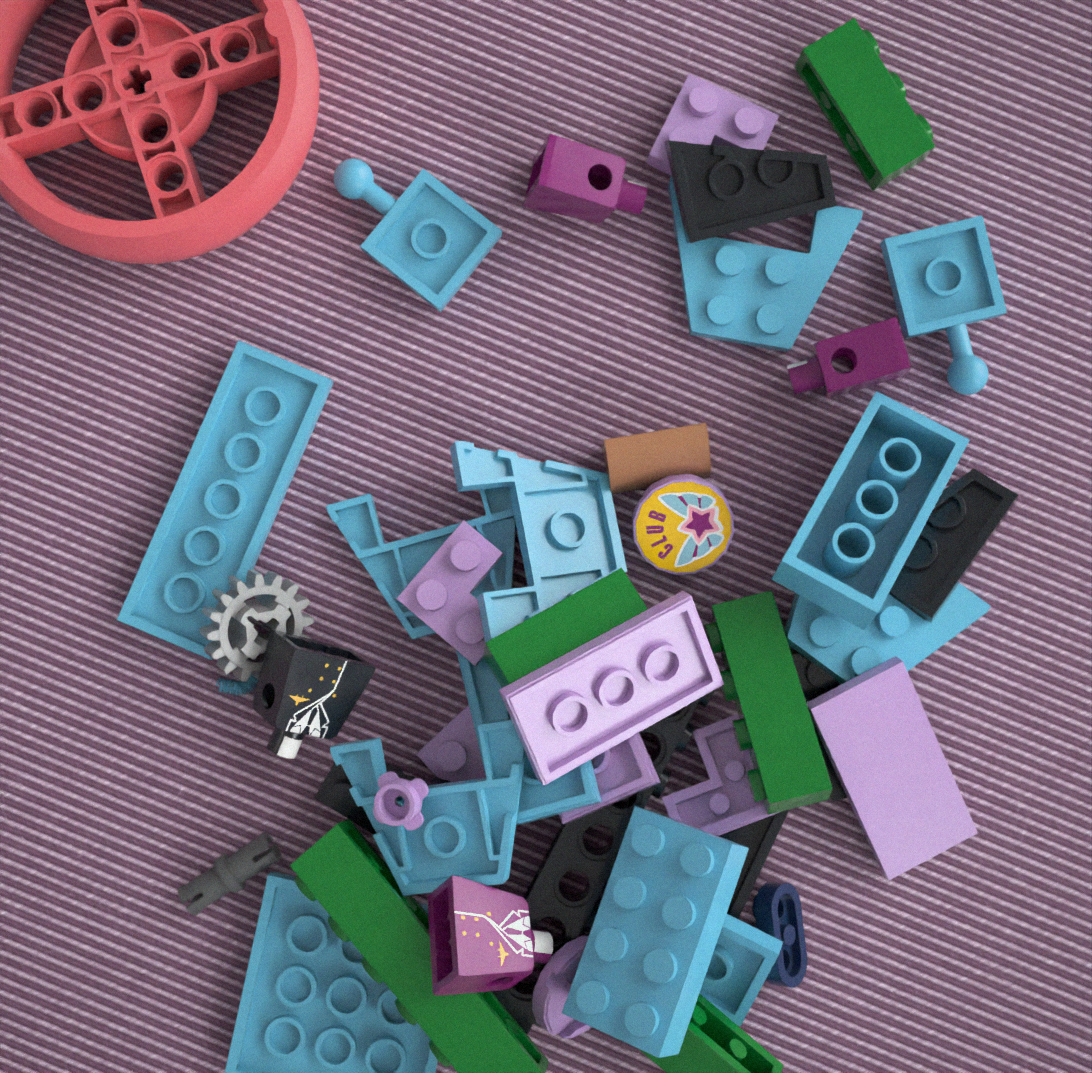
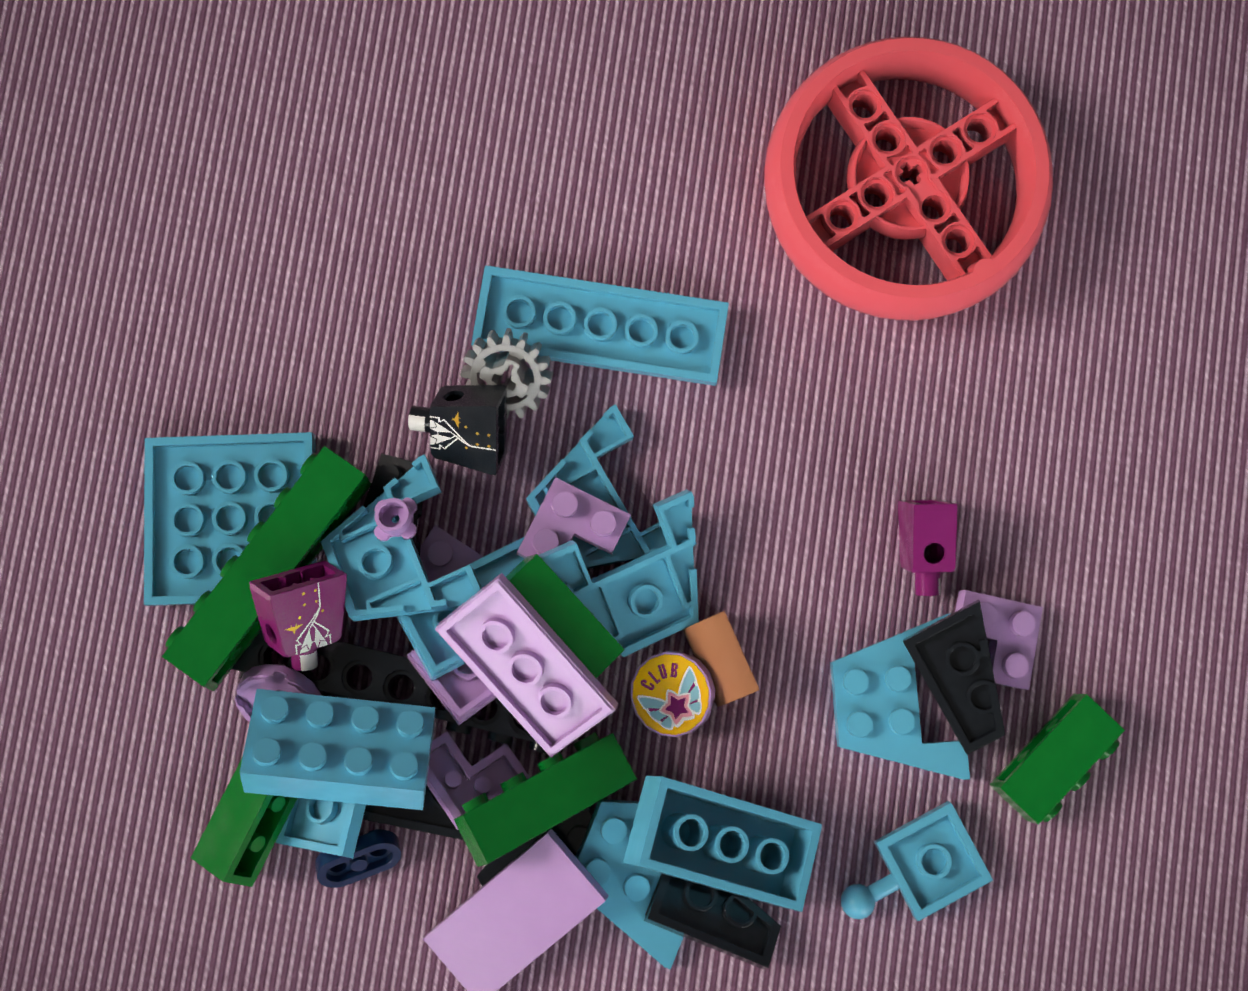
camera: 75 degrees right, 5 degrees down
(229, 873) = (306, 402): dark grey pin -> none
(241, 686) = (454, 370): medium azure leg -> none
(426, 235) = (851, 428): medium azure plate -> none
(874, 350) = (847, 818): magenta torso -> none

